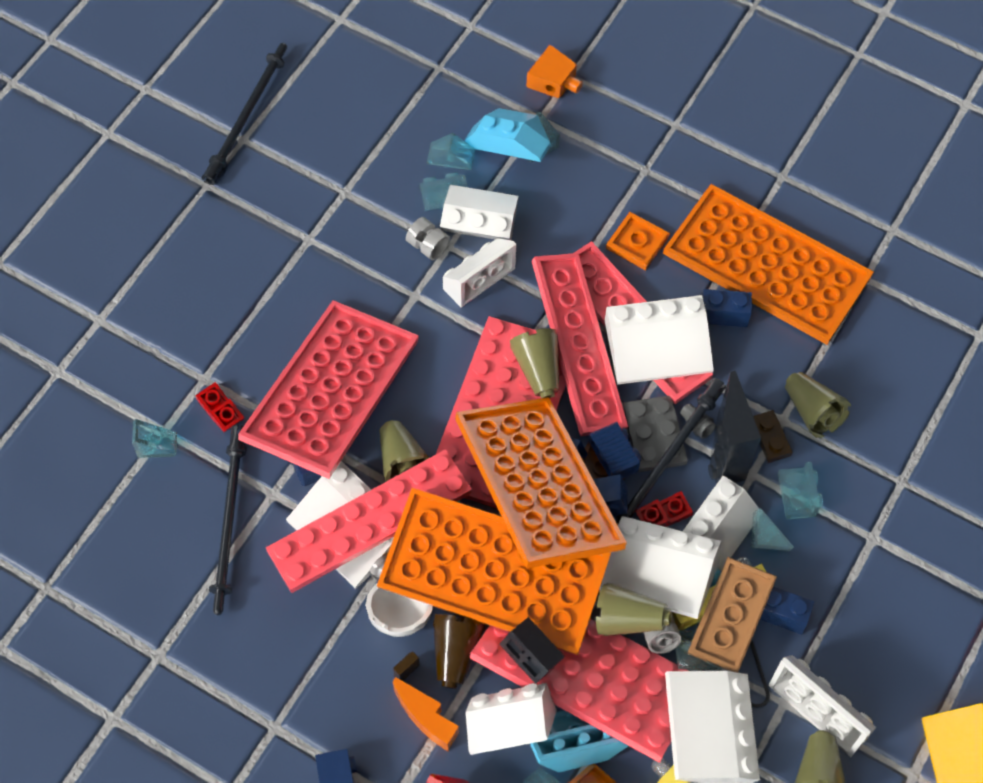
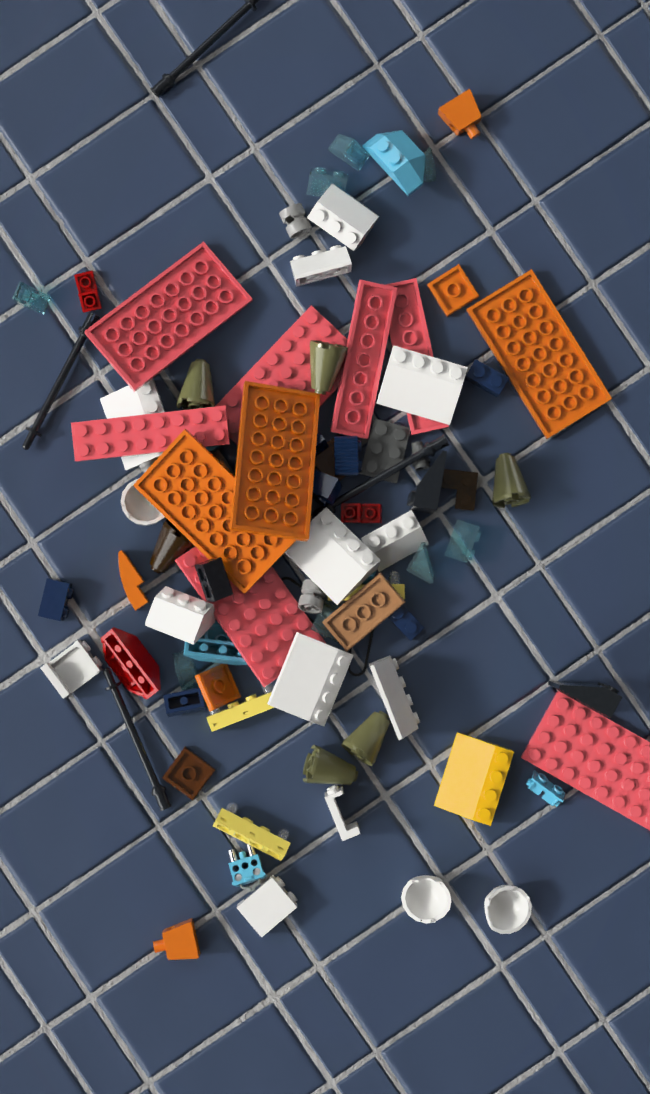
camera: 25 degrees right, 25 degrees up
(406, 666) = (133, 543): dark brown tile -> none
(629, 612) = (293, 581): olive cone -> none

